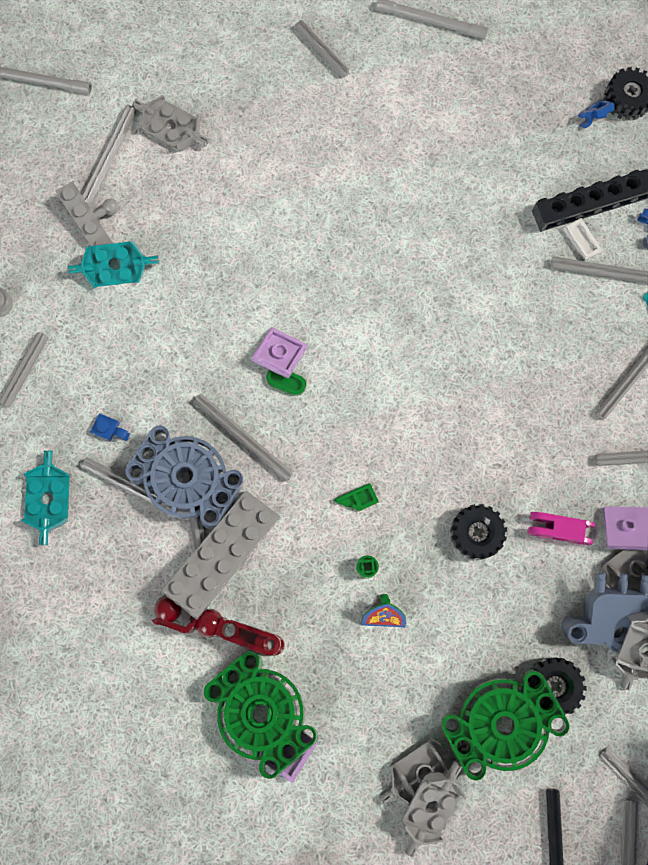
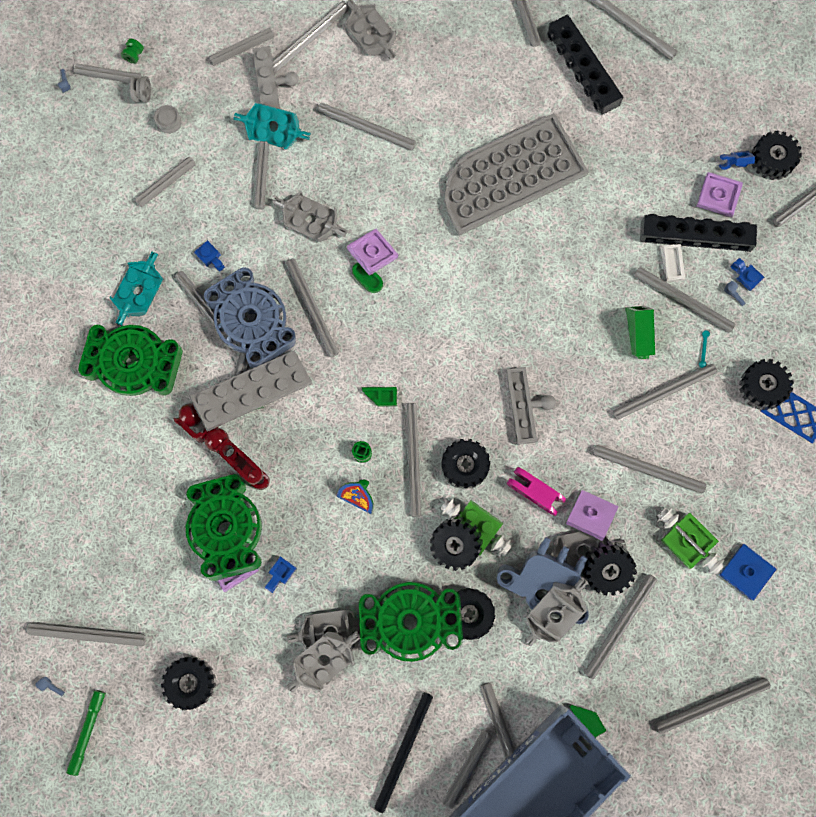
camera: 30 degrees right, 0 degrees up
(40, 193) = (241, 46): none -> light grey axle
(53, 571) = (117, 347): none -> green piece
(124, 320) = (261, 175): none -> light grey axle
(183, 336) = (300, 207): none -> light grey plate
(238, 225) = (366, 126): none -> light grey axle
(343, 734) = (281, 572): none -> blue plate
(382, 215) = (511, 173): none -> light grey plate
(392, 66) = (584, 55): none -> black brick
(423, 551) = (413, 456): none -> light grey axle
(506, 446) = (522, 405): none -> light grey plate
(516, 607) = (464, 534): none -> black bush
(519, 593) = (486, 524): none -> bright green plate
(586, 319) = (641, 331): none -> green slope
(595, 153) = (719, 194): none -> lavender plate

